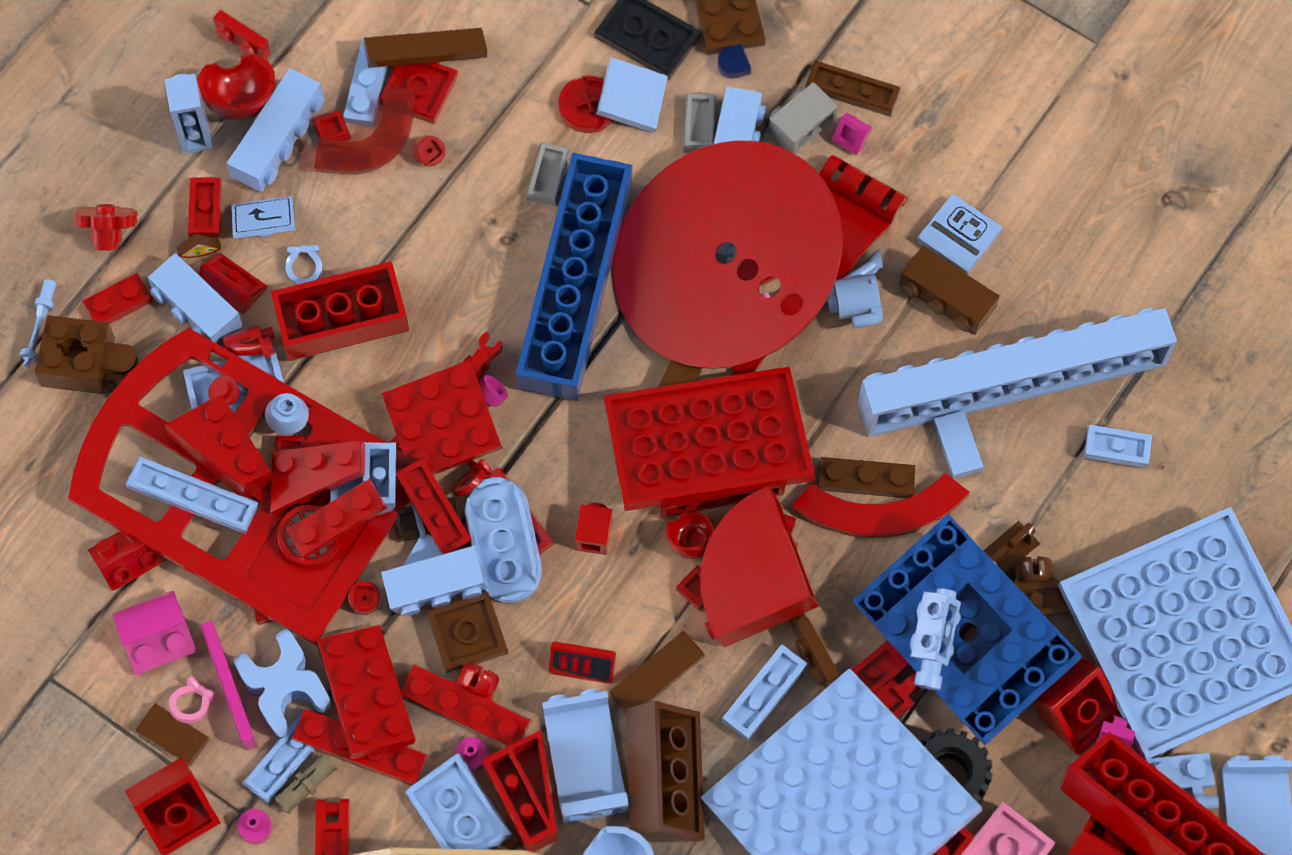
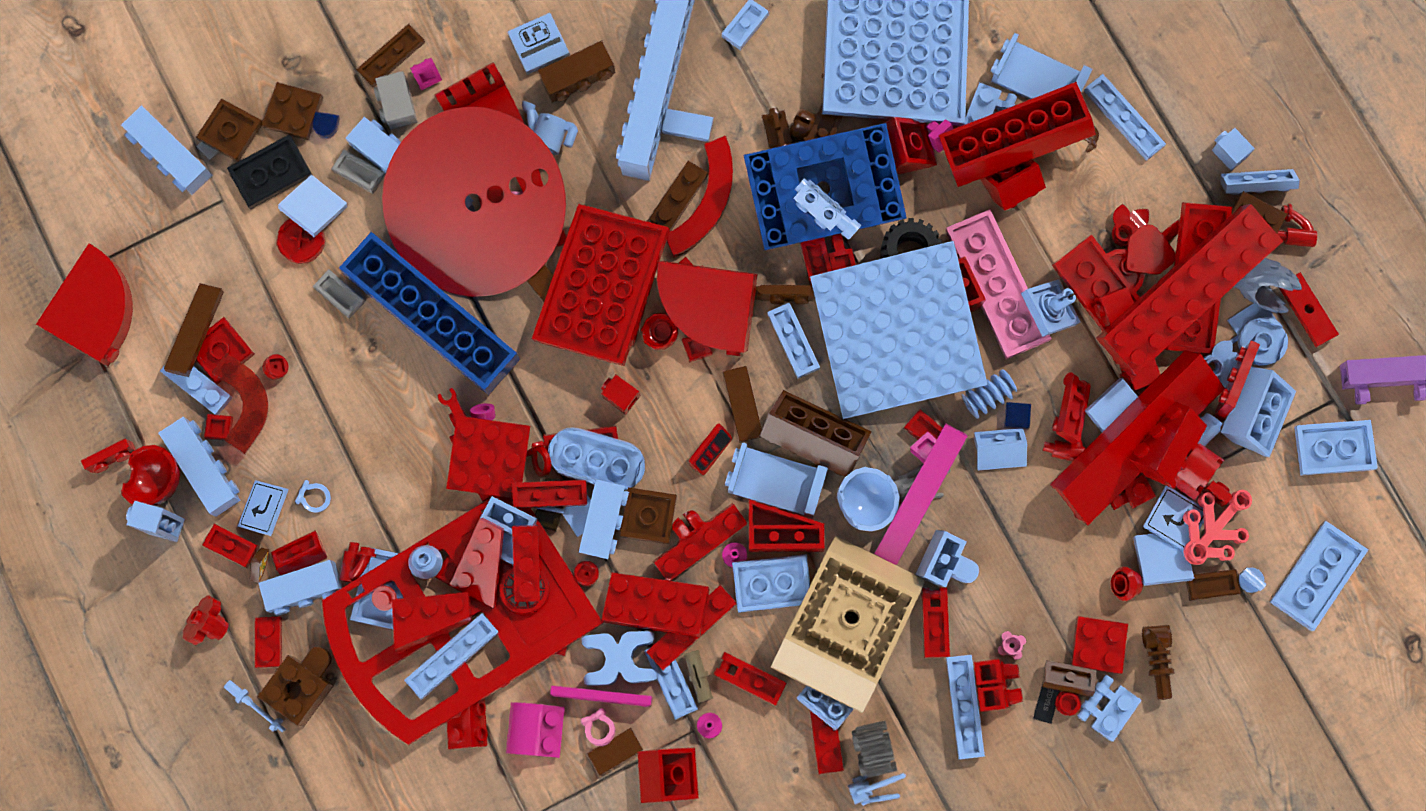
camera: 55 degrees left, 10 degrees up
(340, 311) = (366, 488): red brick -> none

